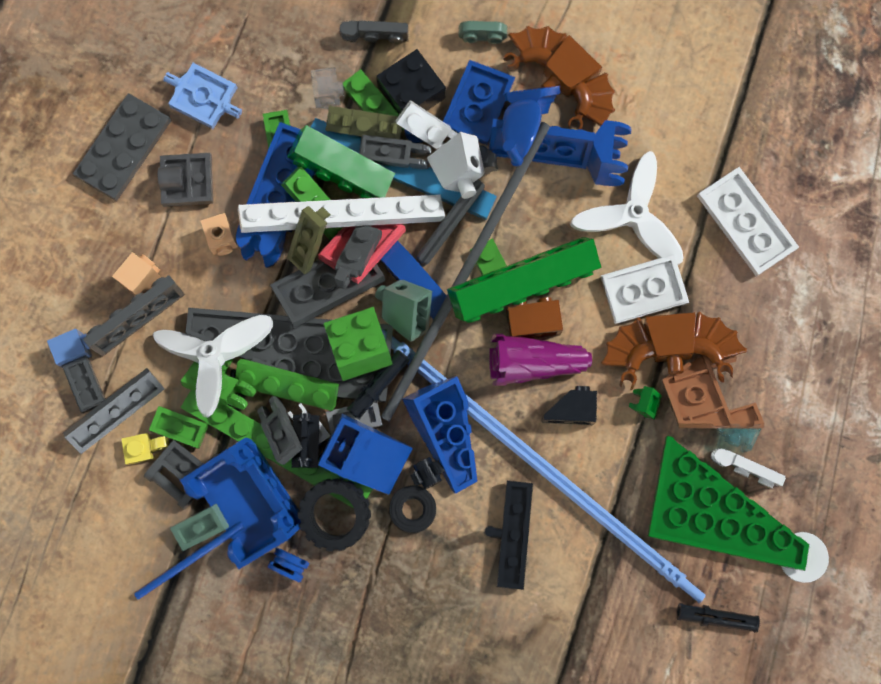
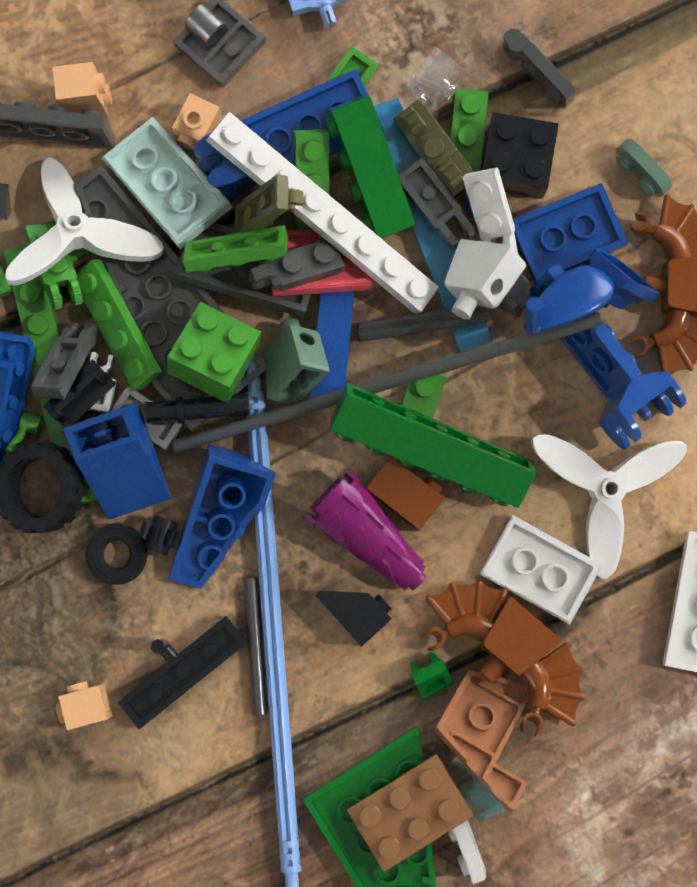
camera: 50 degrees right, 5 degrees up
(235, 281) = (166, 182): none -> light aqua tile
(292, 486) = (28, 423): none -> bright green hand
(314, 276) = (235, 249): none -> bright green plate
(480, 608) = (83, 705): none -> light nougat brick
(538, 482) = (255, 646): none -> dark grey bar
(711, 482) = (410, 812): none -> medium nougat plate

